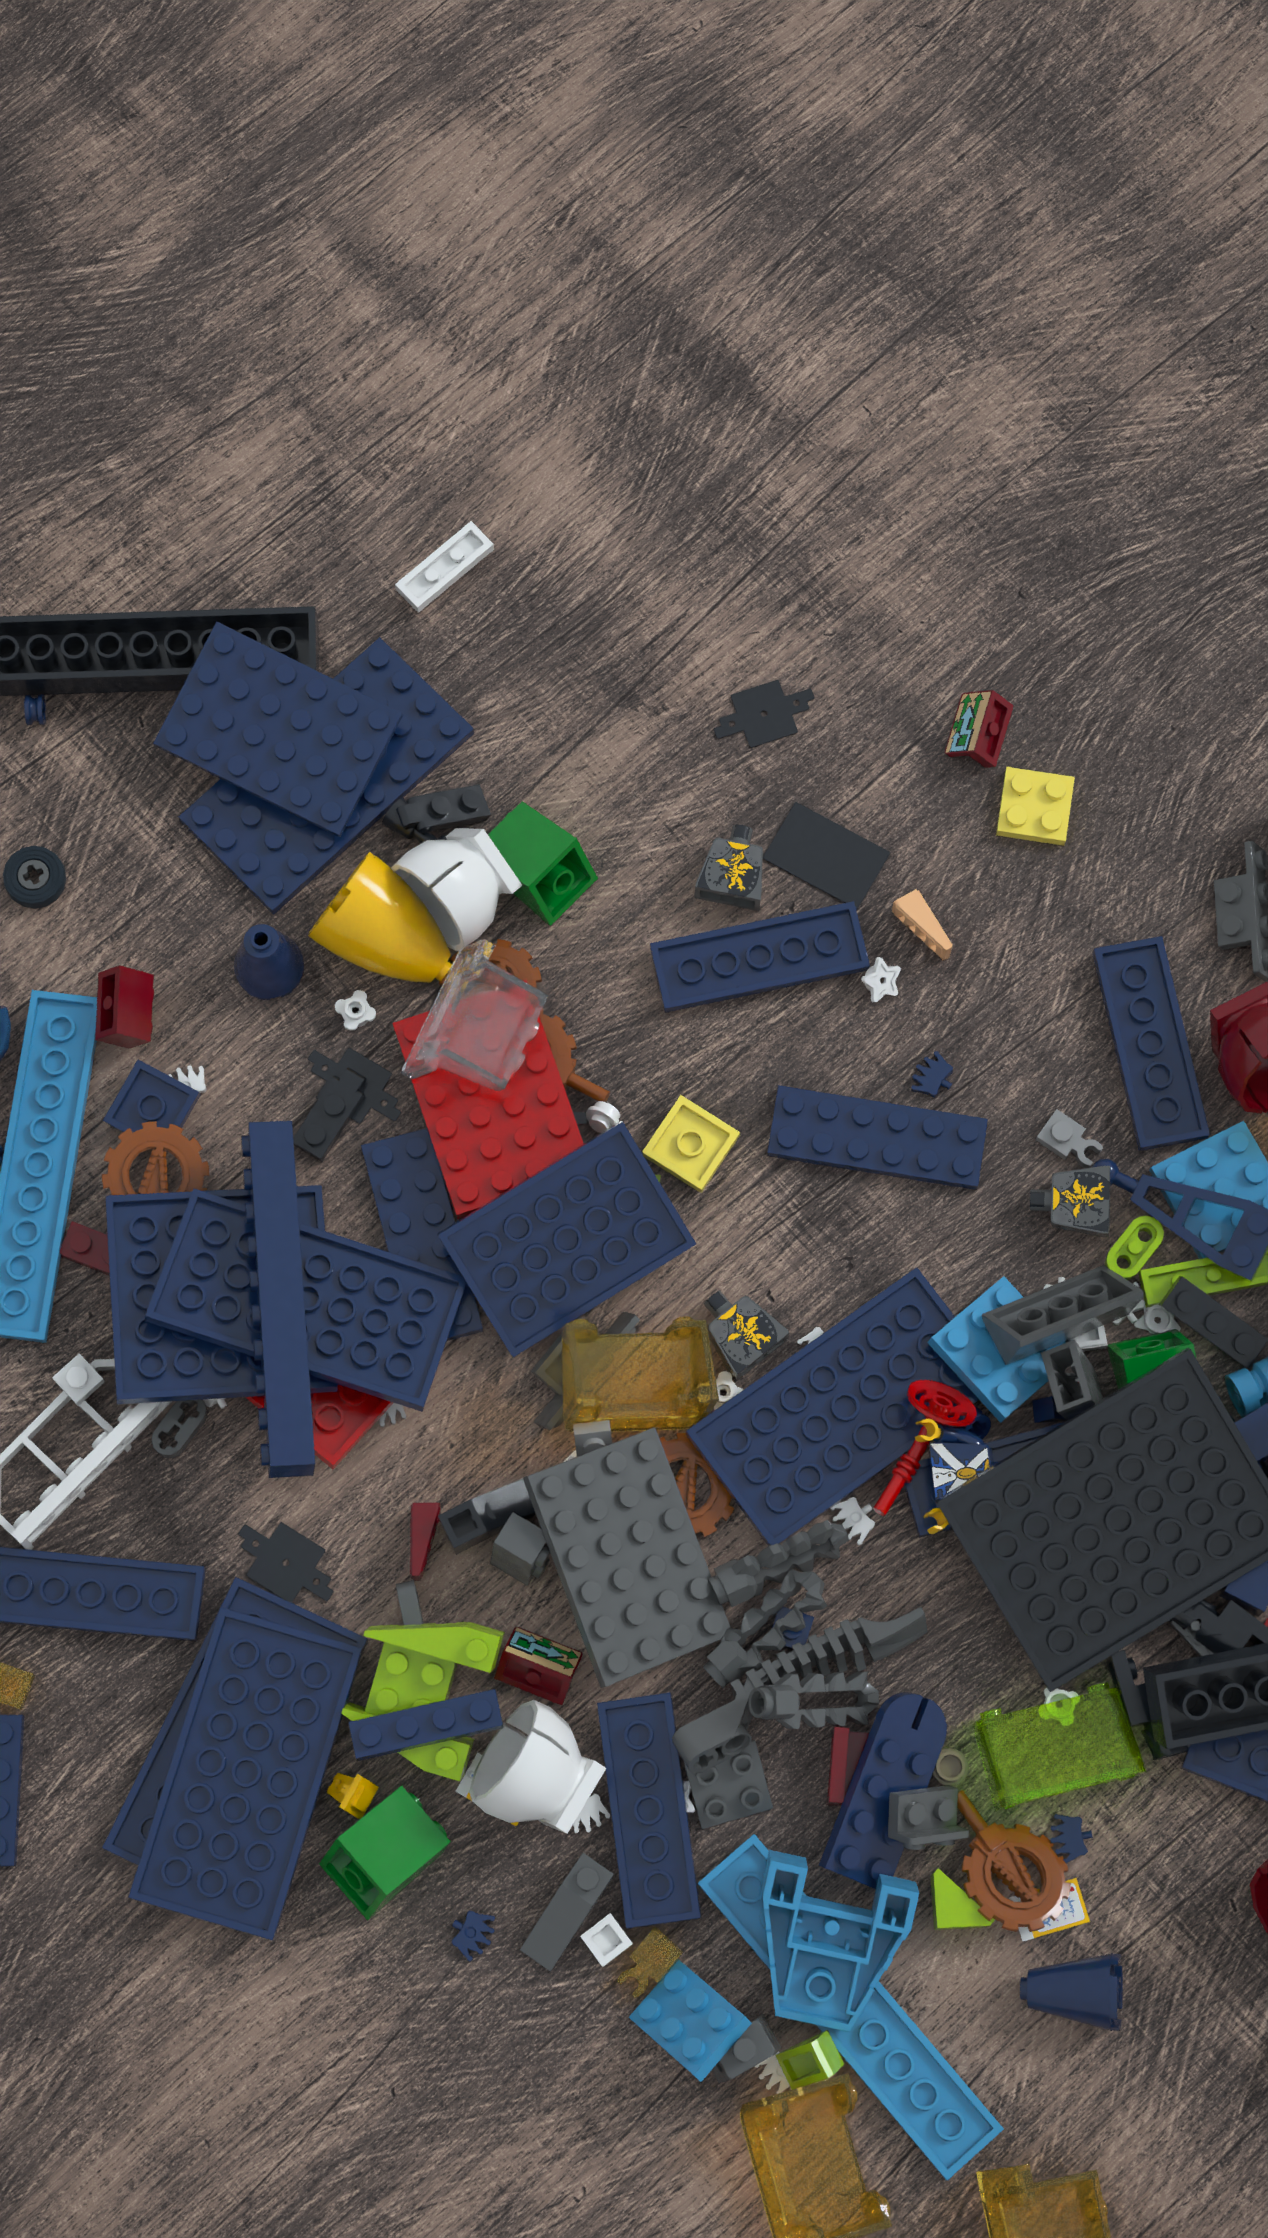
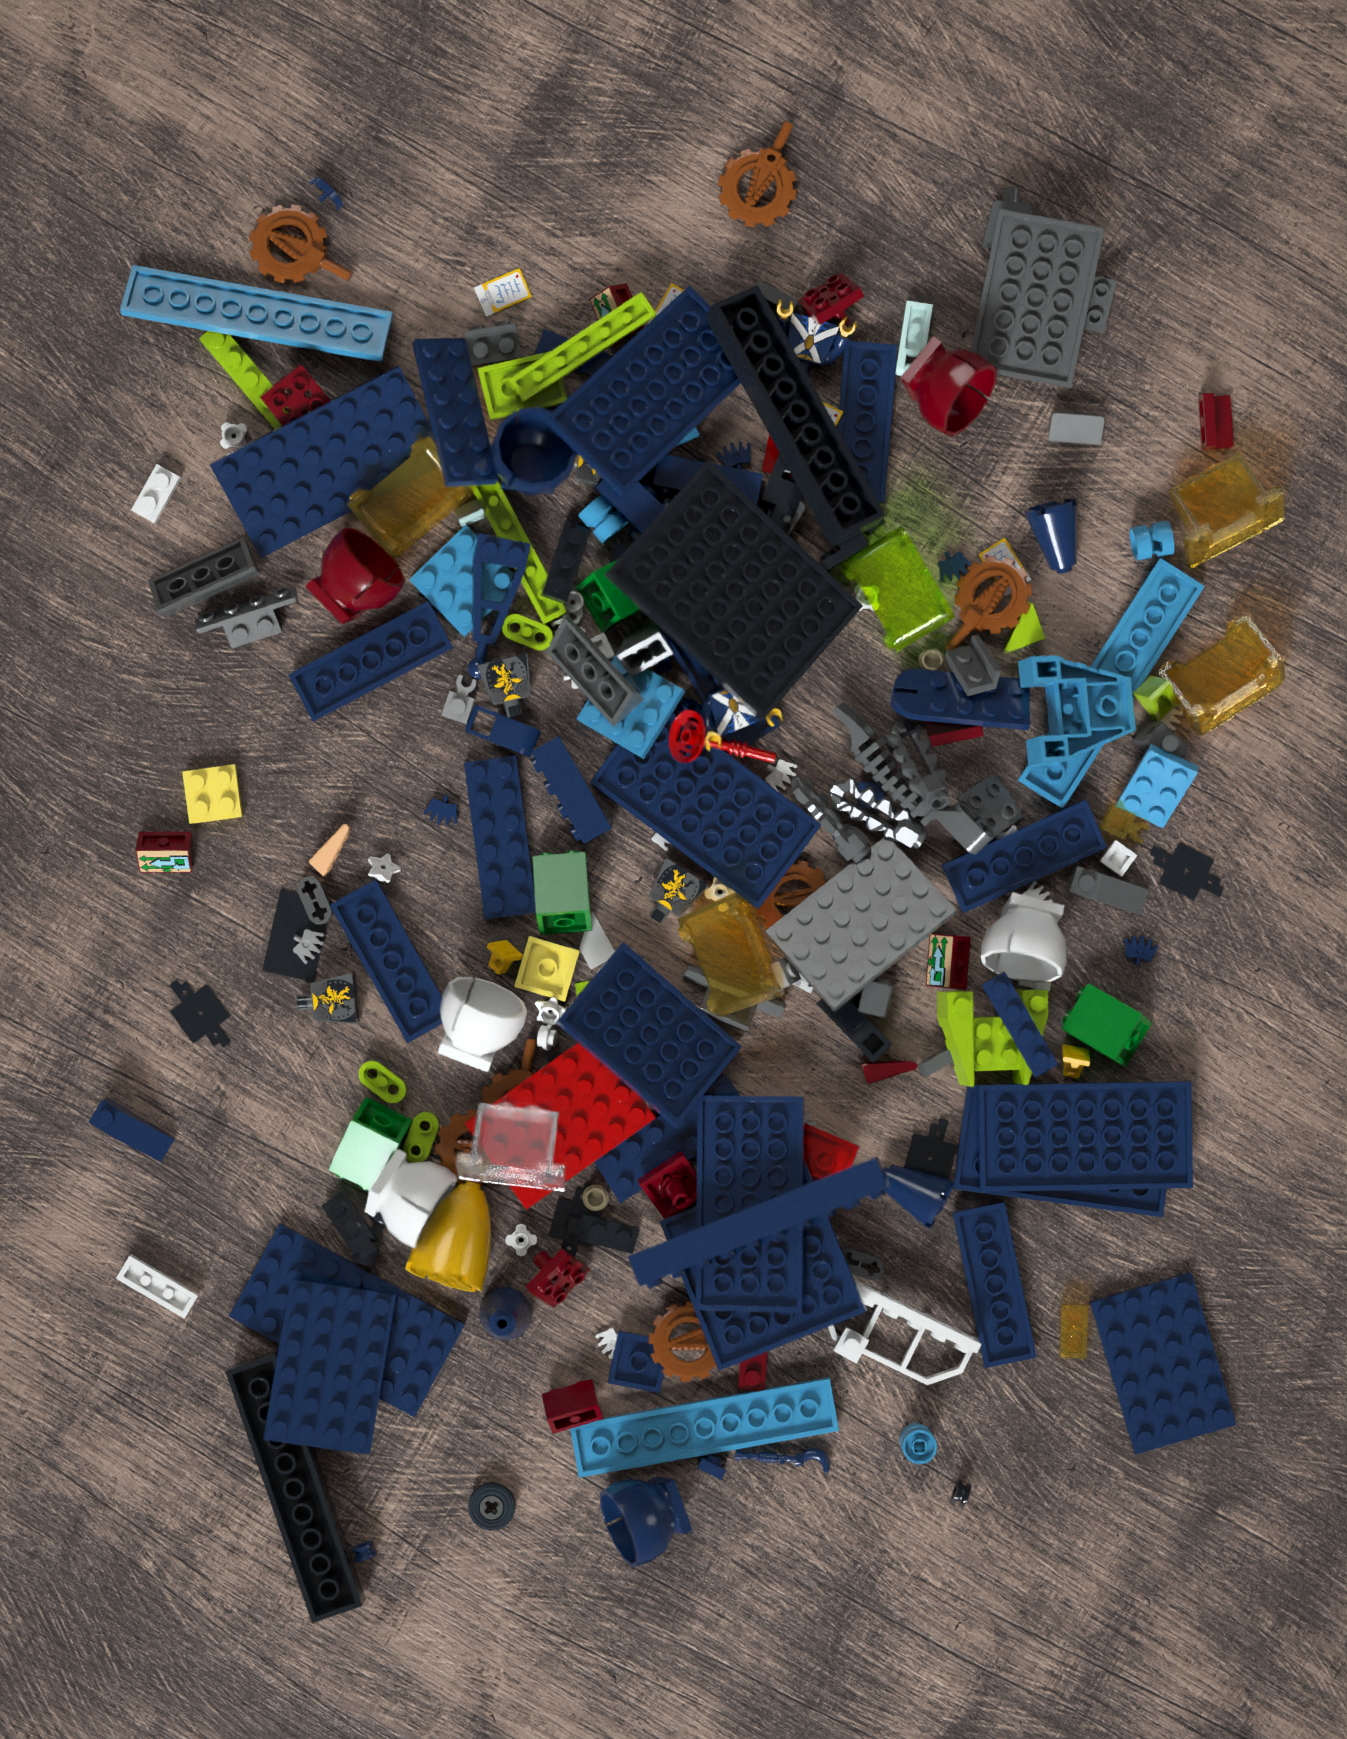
camera: 105 degrees left, 15 degrees up
(246, 1526) = (918, 1192): none -> dark blue cone
(294, 1035) = (556, 1276): none -> dark red plate
(352, 1215) = (677, 1193): none -> dark red plate
(378, 1117) = (595, 1197): none -> dark tan plate
(524, 927) = (421, 1137): none -> lime plate
(576, 2036) = (1190, 883): none -> black piece
(609, 902) = (381, 1084): none -> lime plate
(638, 1032) = (482, 1024): none -> white plate
(642, 1125) = (544, 1015): none -> white plate
(648, 590) = (131, 1129): none -> dark blue slope
(705, 1215) = (595, 945): none -> white sticker
(725, 1093) = (502, 956): none -> yellow brick
(782, 1189) = (562, 893): none -> green slope
(811, 863) = (307, 943): none -> light grey piece
(865, 879) = (320, 896): none -> dark grey beam
(912, 1241) = (571, 790): none -> dark blue brick
(1010, 1185) = (507, 732): none -> dark blue piece
(1031, 2124) = (1152, 540): none -> dark azure wheel
(1214, 2067) = (1075, 428): none -> slope

